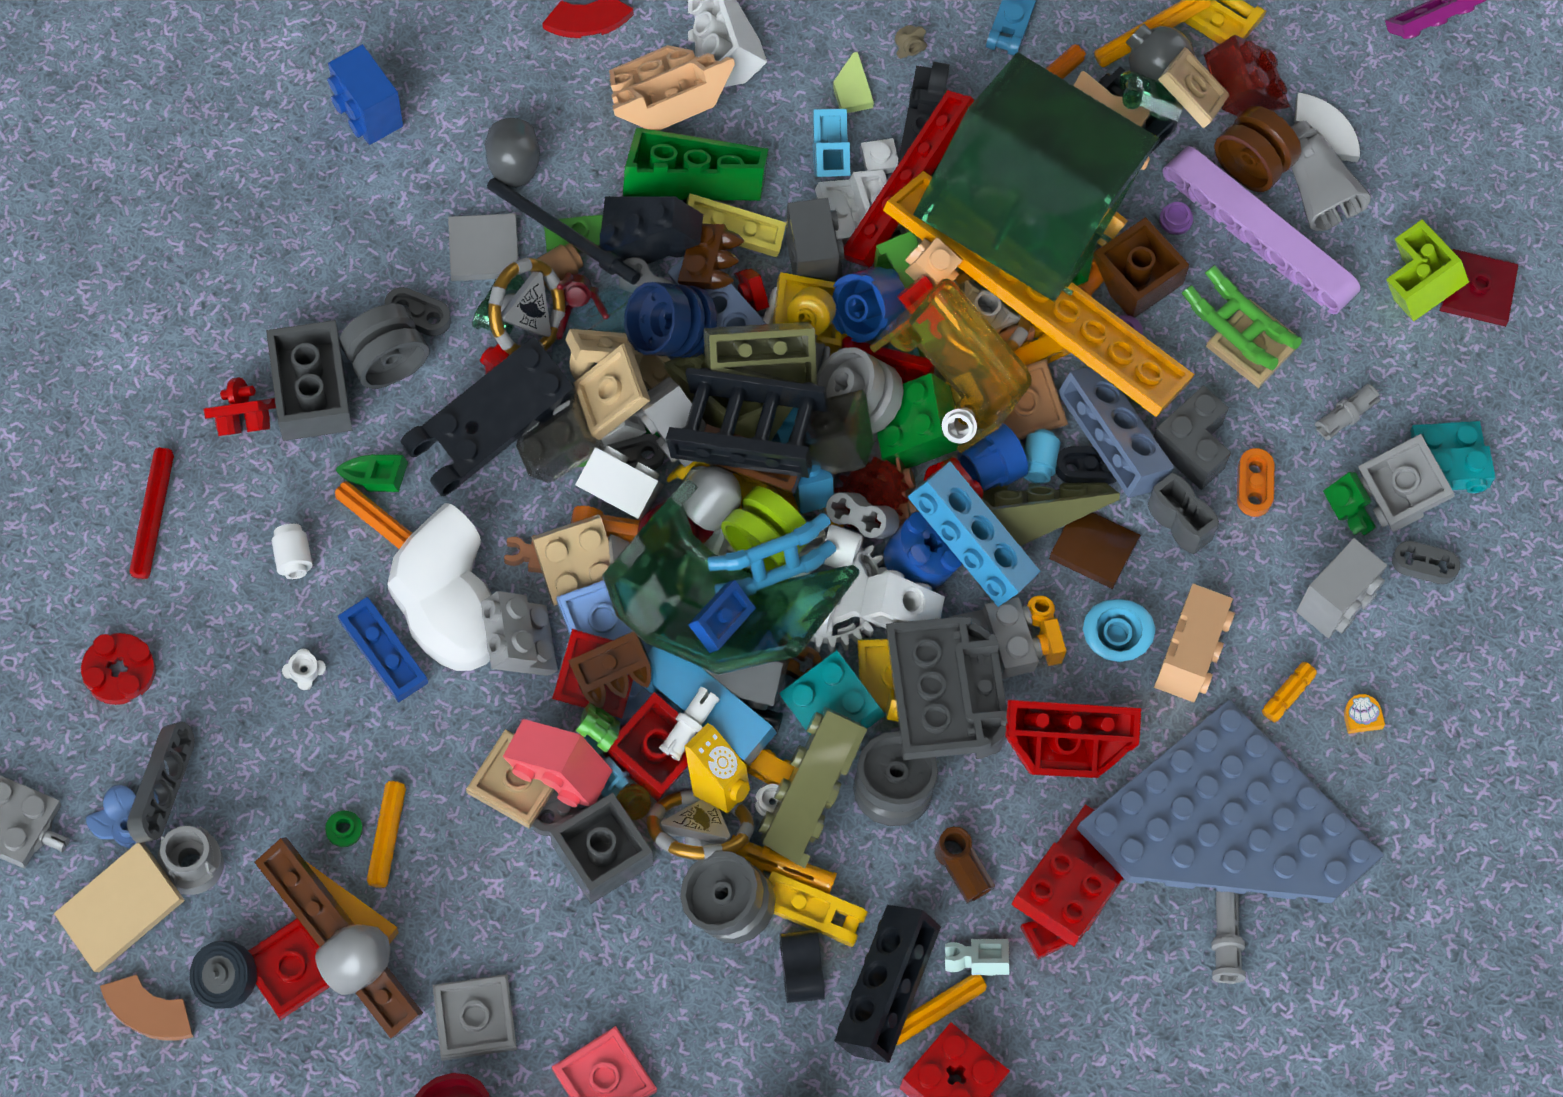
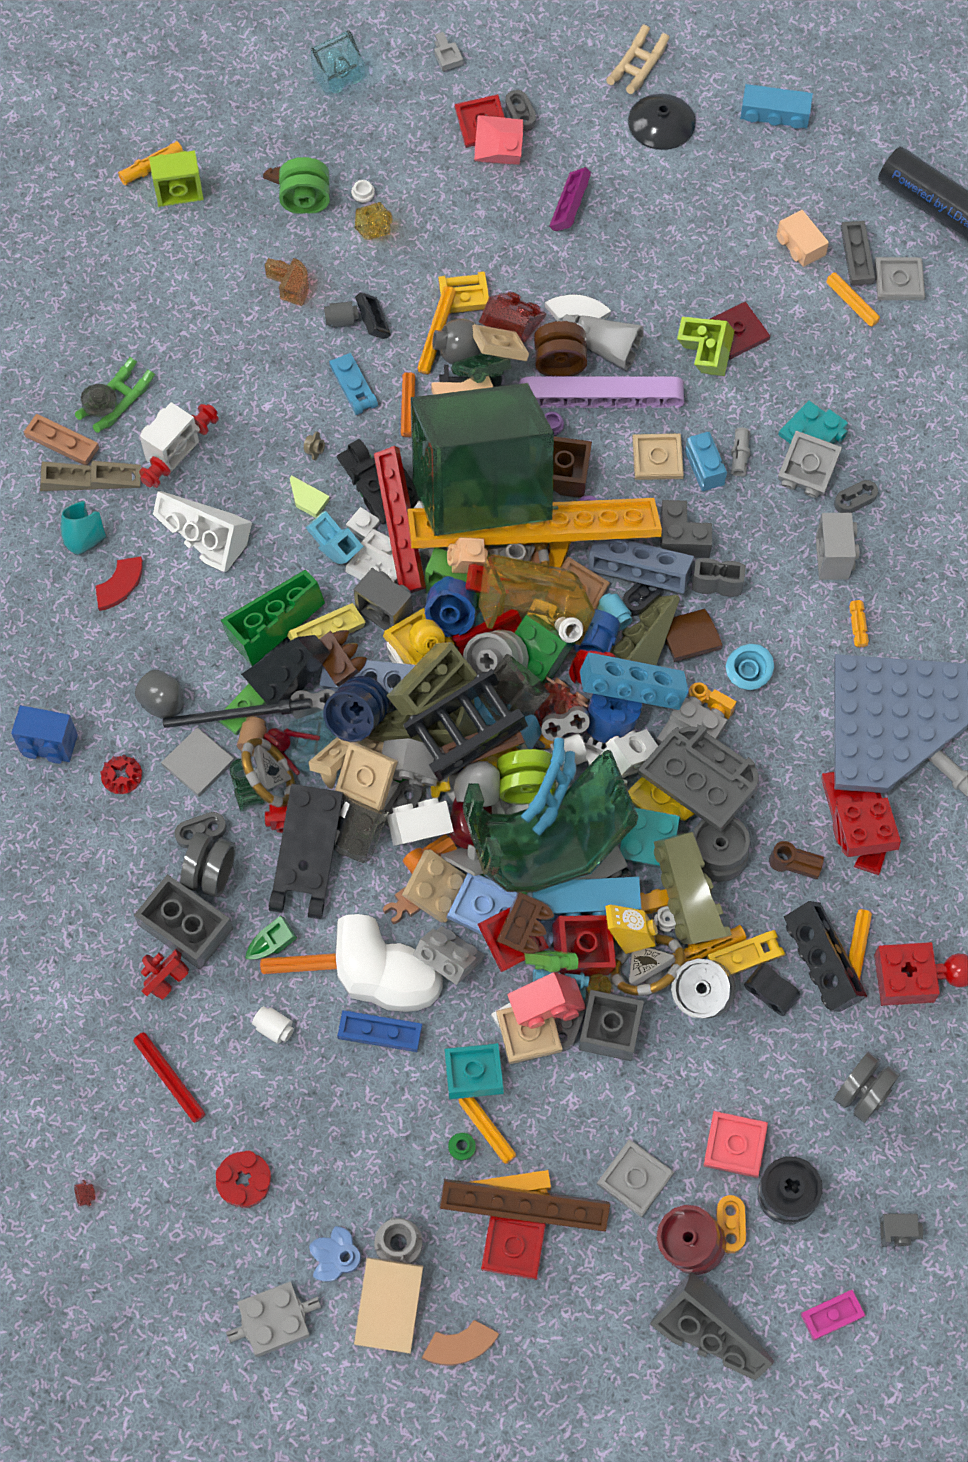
camera: 40 degrees left, 0 degrees up
(147, 817) = (342, 1216): dark grey beam -> none
(223, 974) = (483, 1285): black wheel -> none
(301, 659) = (350, 1075): white plate -> none
(353, 958) = (550, 1206): light grey piece -> none
(392, 207) = (122, 784): none -> red gear
(426, 768) = (474, 1071): none -> teal plate
(667, 86) = (210, 582): light nougat wedge -> none
(689, 723) = (595, 915): white pin -> none
(722, 616) = (560, 841): blue plate -> none
(752, 288) = (375, 652): red plate -> none
(983, 956) = (853, 898): light aqua plate -> none
(1071, 736) = (784, 742): red wedge -> none
(1195, 643) = (792, 640): light nougat wedge -> none
(1236, 302) = (632, 440): bright green piece -> none
(1255, 484) = (735, 530): orange plate -> none
(1296, 388) = (705, 461): none -> dark azure brick
(1348, 501) = (788, 498): green plate -> none
(1363, 714) = (904, 603): tile -> none

